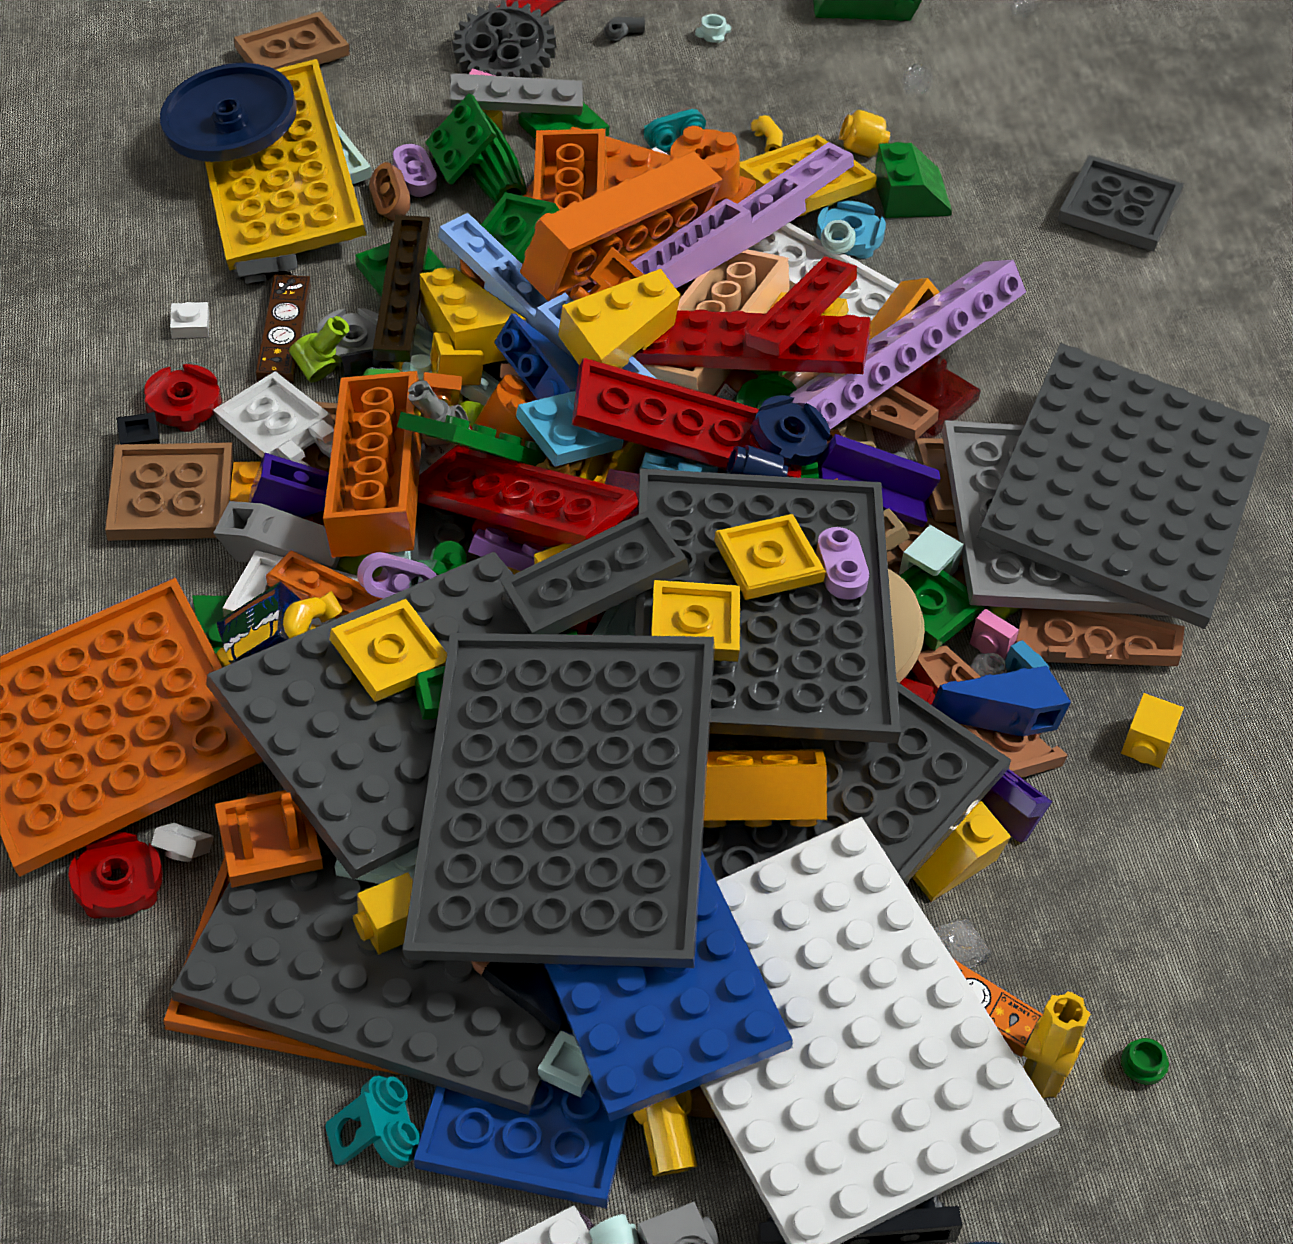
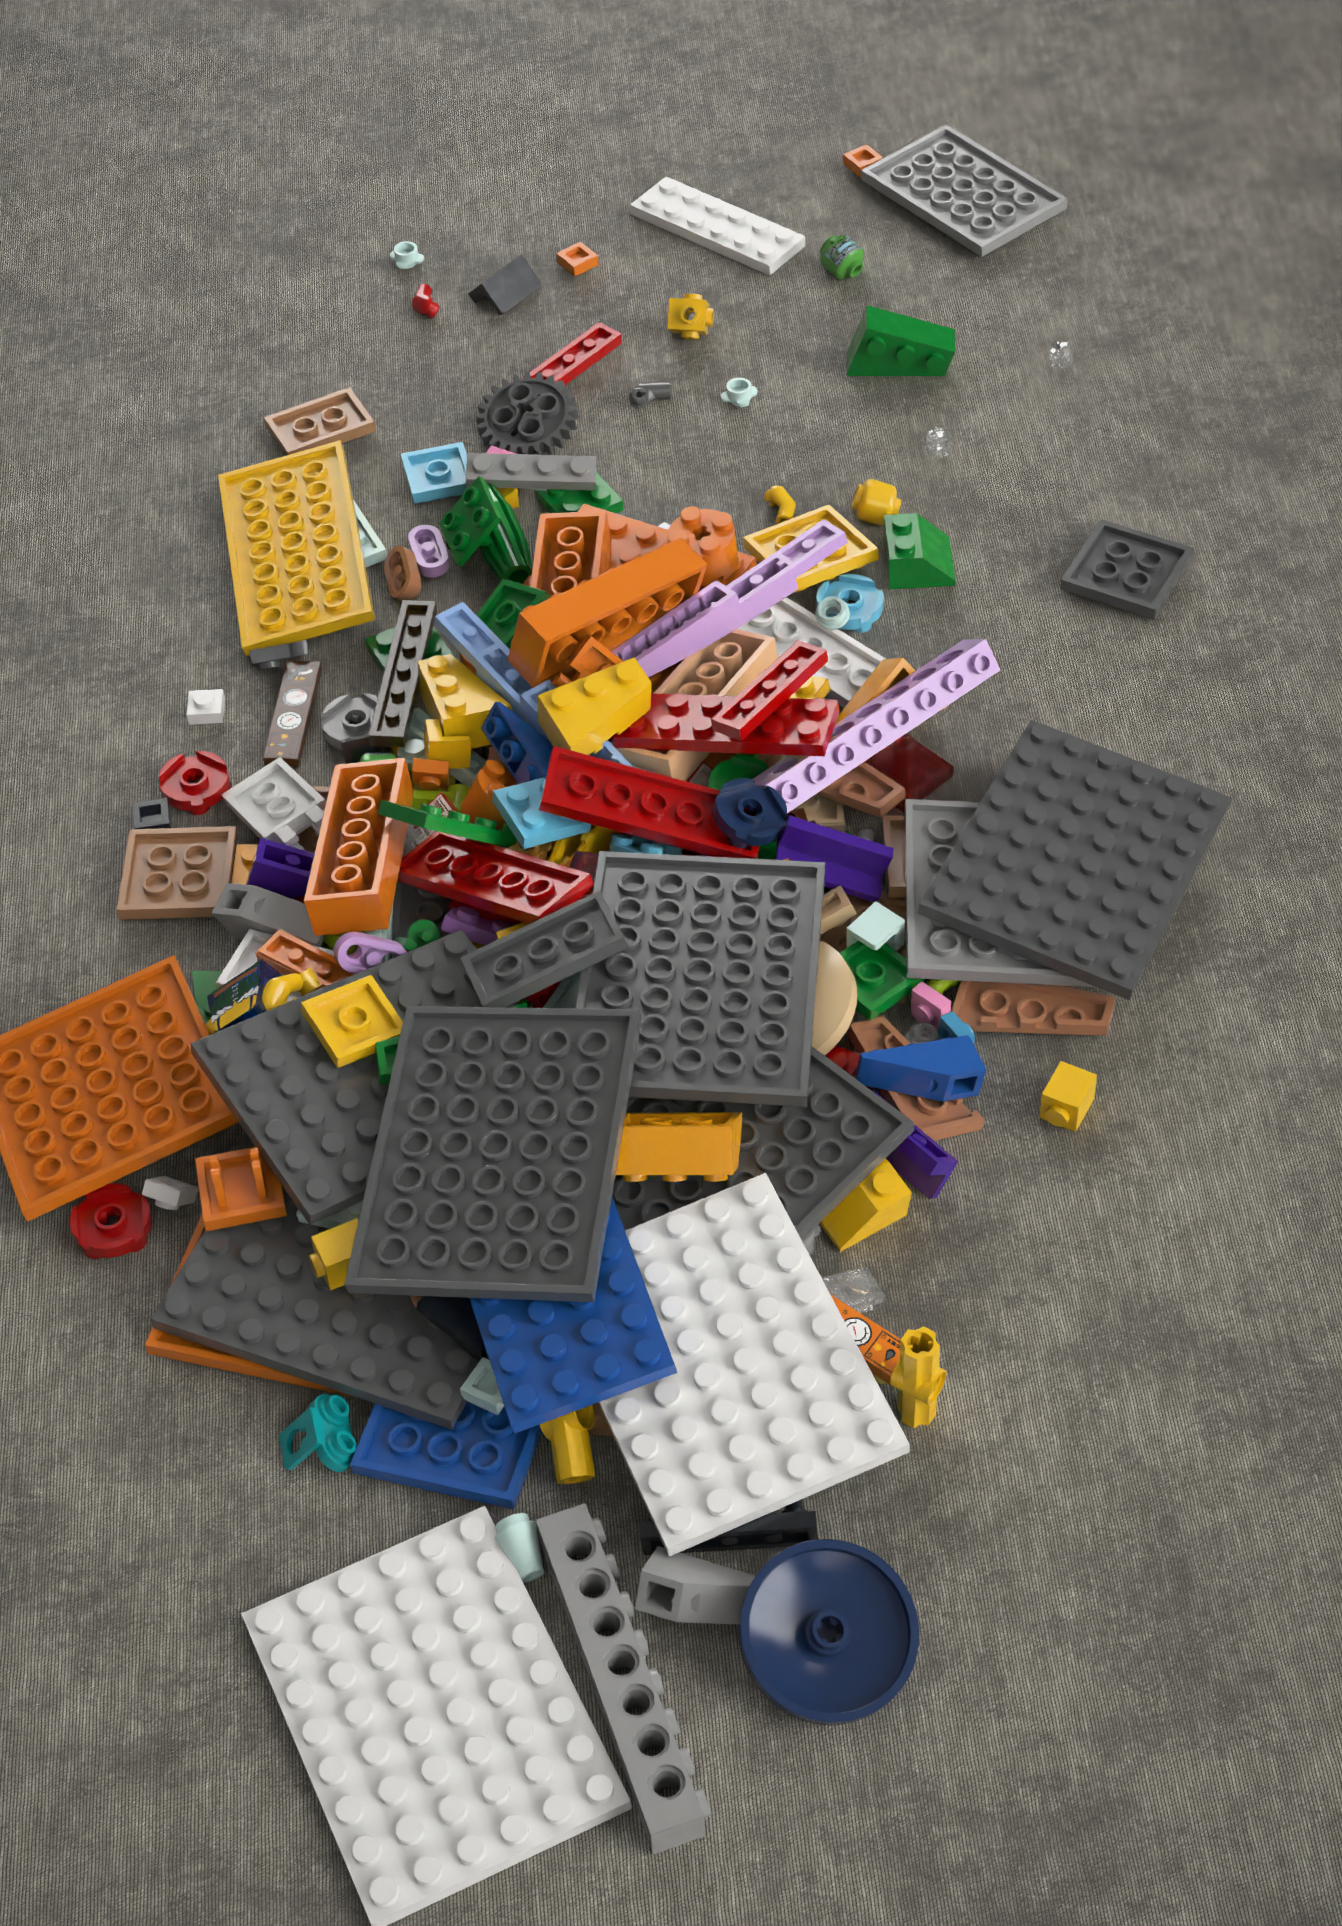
camera: 10 degrees right, 0 degrees up
(228, 112) = (250, 499): dark blue dish -> none
(316, 350) = (319, 736): lime pin -> none
(416, 95) = (436, 472): none -> medium azure plate
(432, 407) = (415, 793): light grey pin -> none
(666, 129) = (671, 504): teal bracket -> none
(699, 612) = (632, 985): yellow plate -> none
(755, 461) = (711, 844): dark blue brick -> none
(769, 556) = (706, 934): yellow plate -> none
(843, 562) = (775, 940): lavender plate -> none
(1145, 1061) = (1012, 1395): green plate -> none

